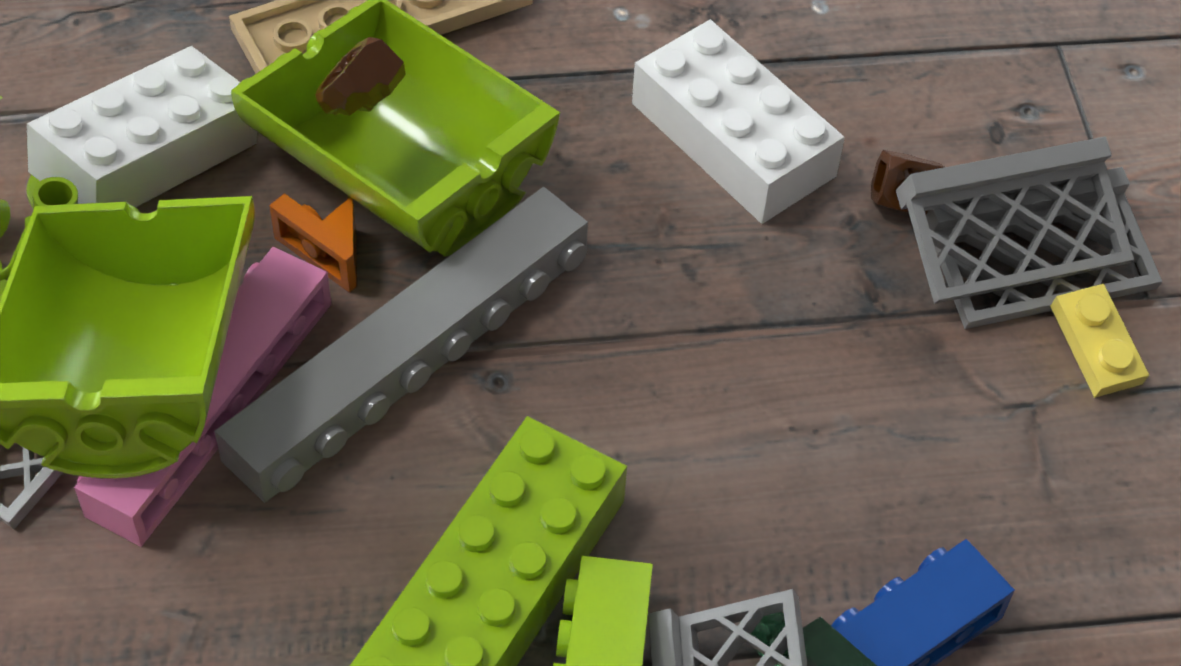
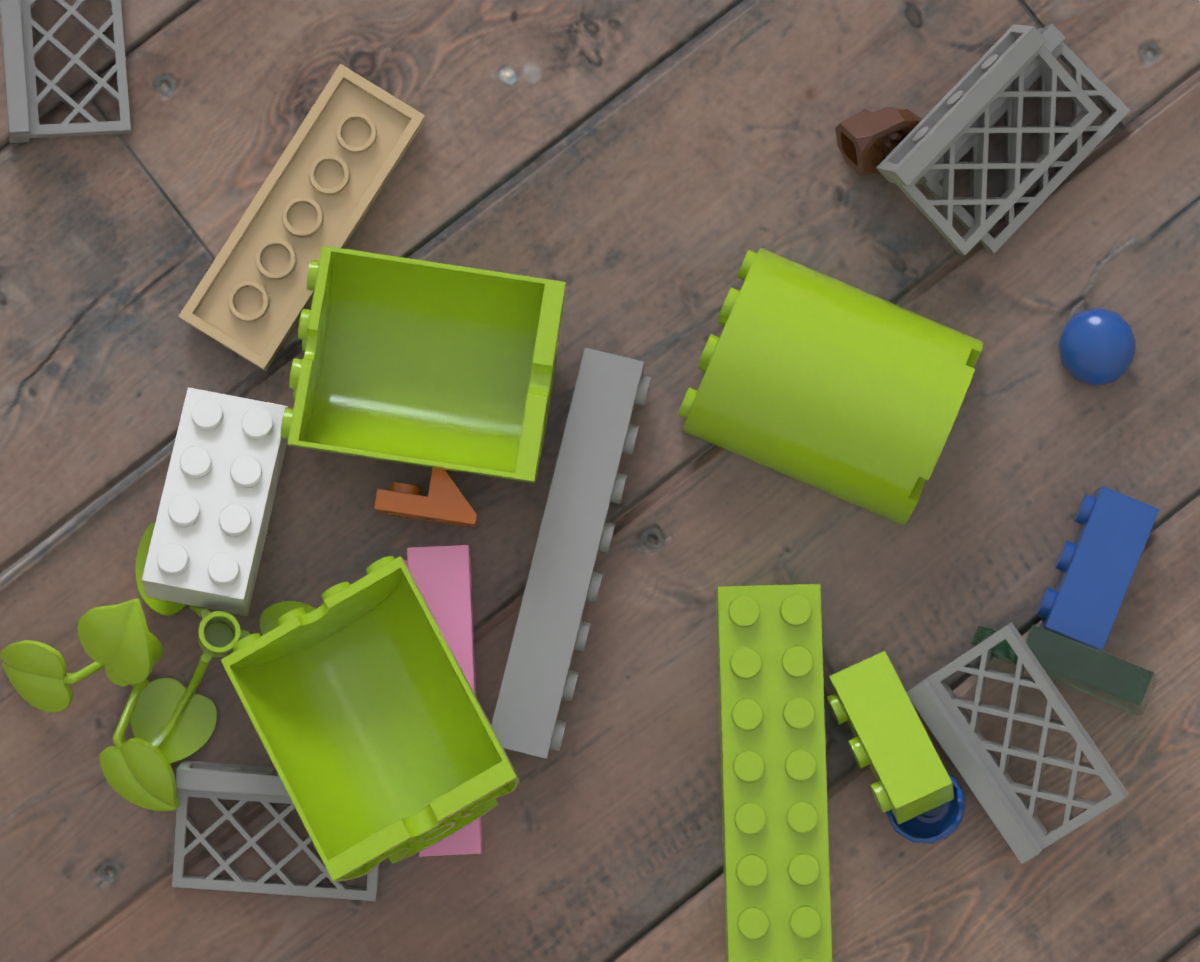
camera: 30 degrees left, 30 degrees up
(361, 78) = (390, 375): reddish brown rock -> none
(736, 120) = (692, 158): white brick -> none
(742, 336) = (830, 385): none -> lime cylinder
(1027, 440) = (1097, 346): none -> blue hair
(1099, 340) = (1107, 208): light yellow plate -> none

